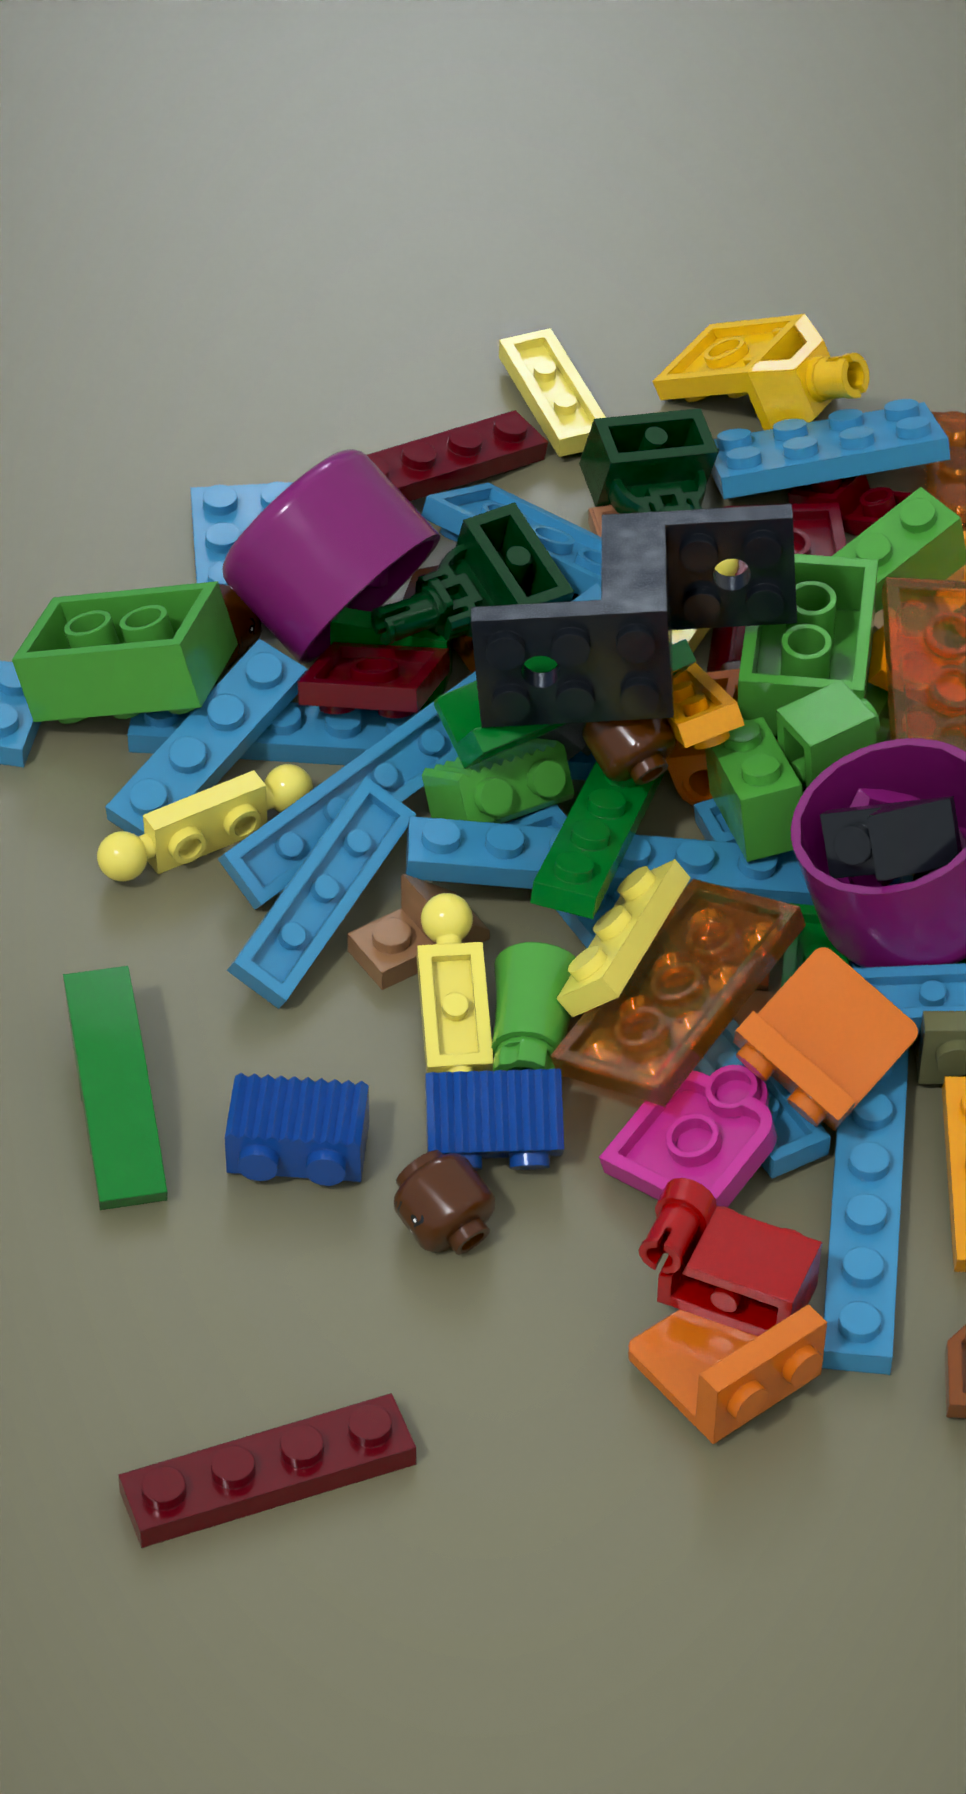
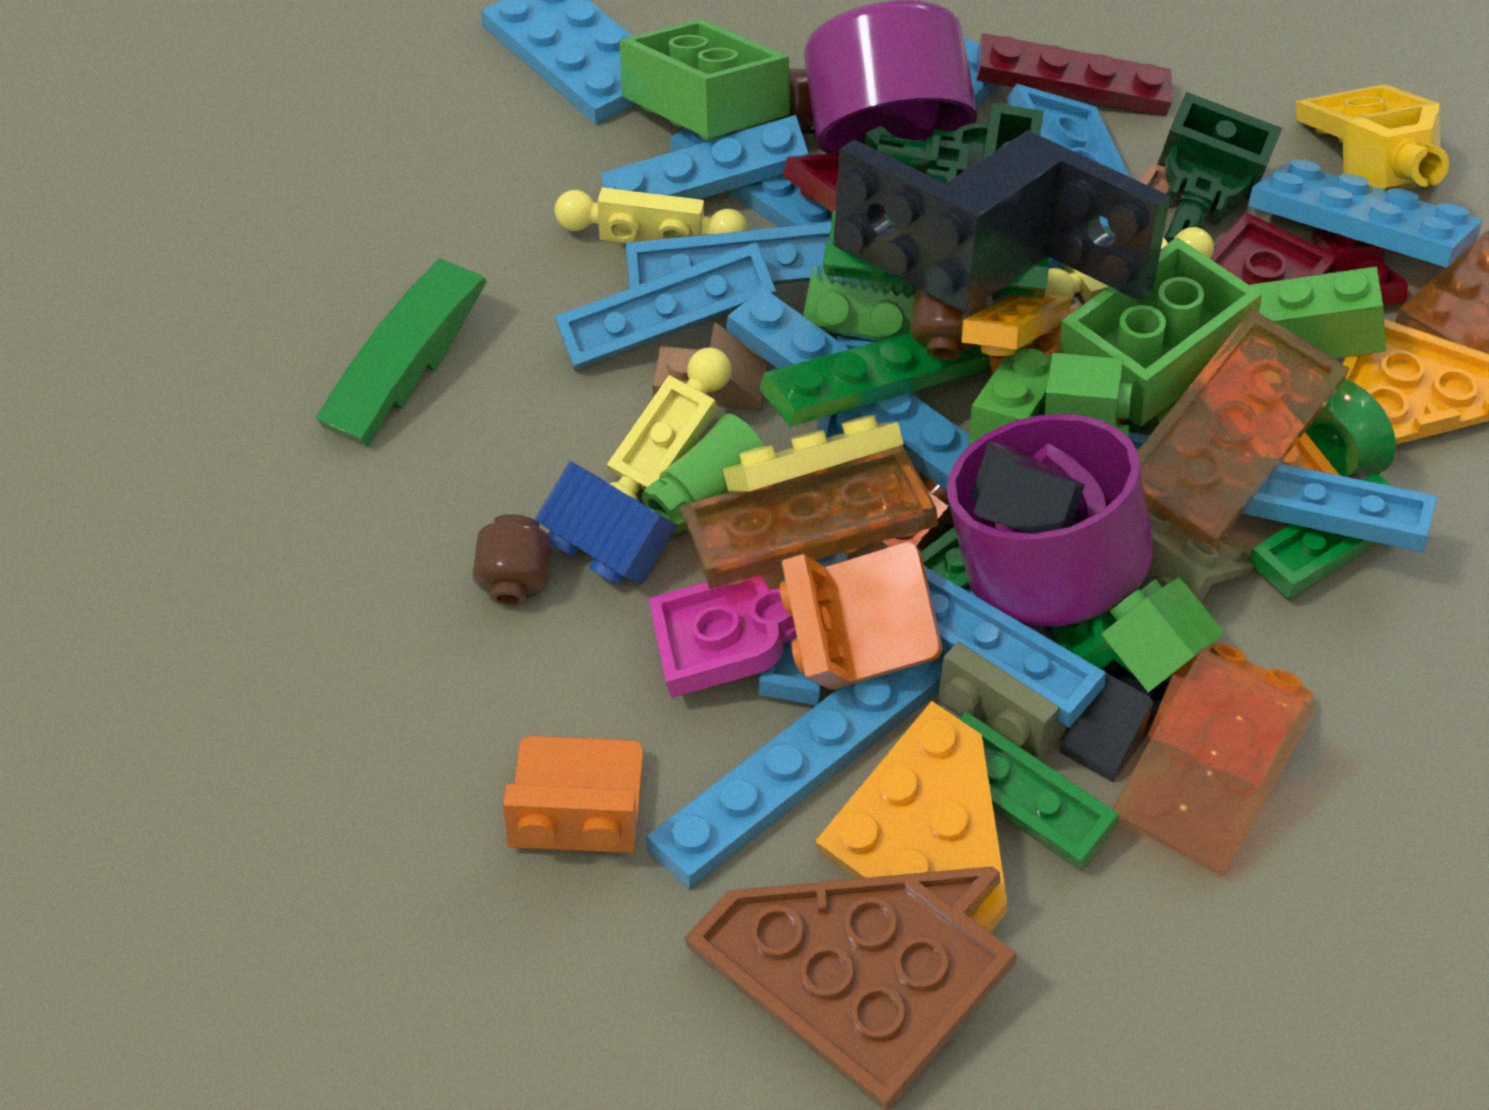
camera: 40 degrees right, 5 degrees up
(266, 1470) = (221, 657): dark red plate -> none
(297, 1129) = (479, 451): blue brick -> none
(551, 389) = (1218, 61): light yellow plate -> none
(727, 1262) = (633, 725): red hinge -> none

